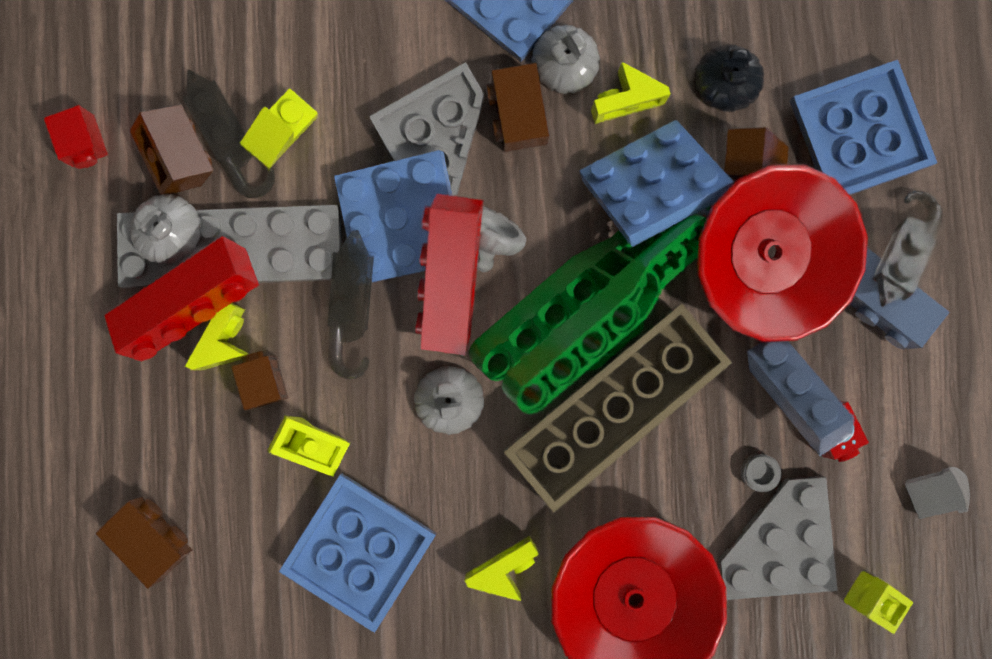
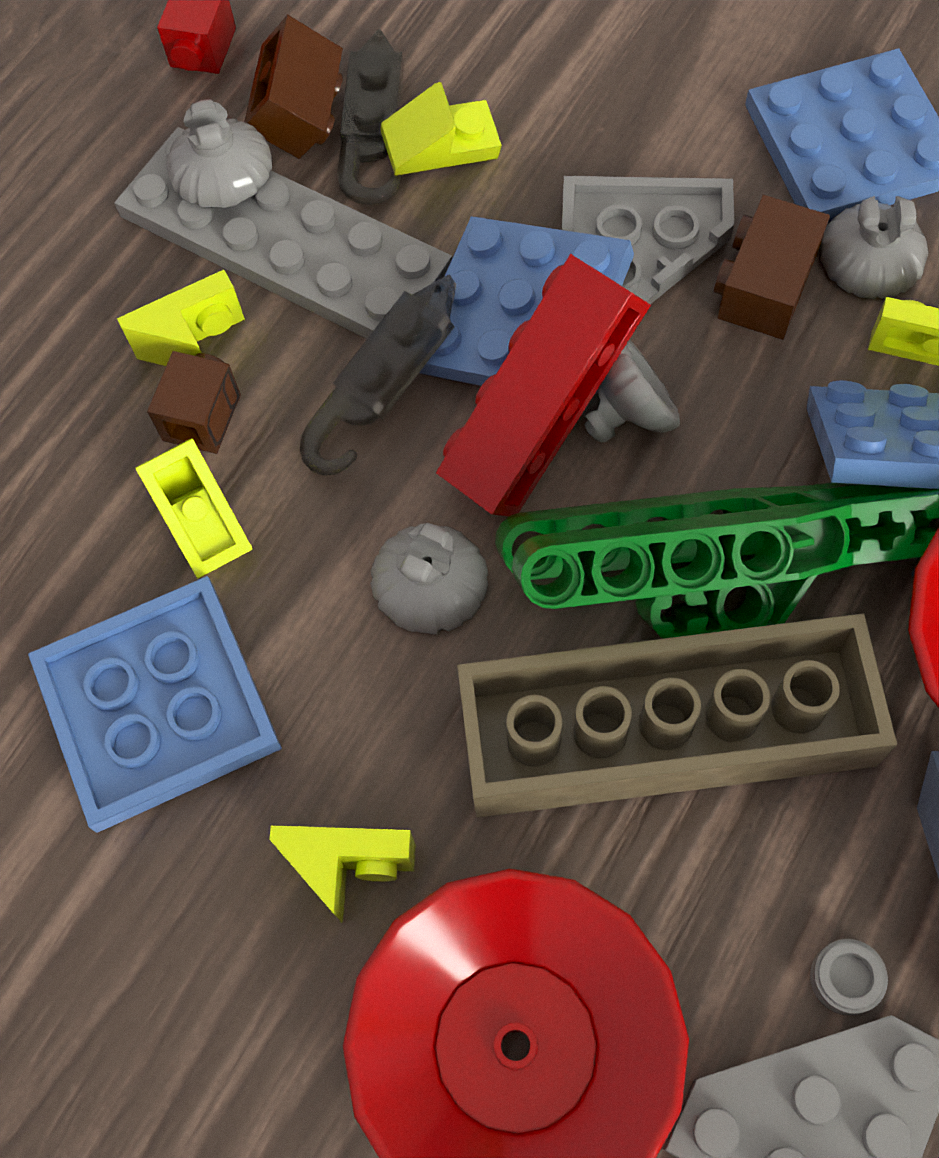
camera: 35 degrees right, 20 degrees down
(181, 300) = (174, 239): red brick -> none

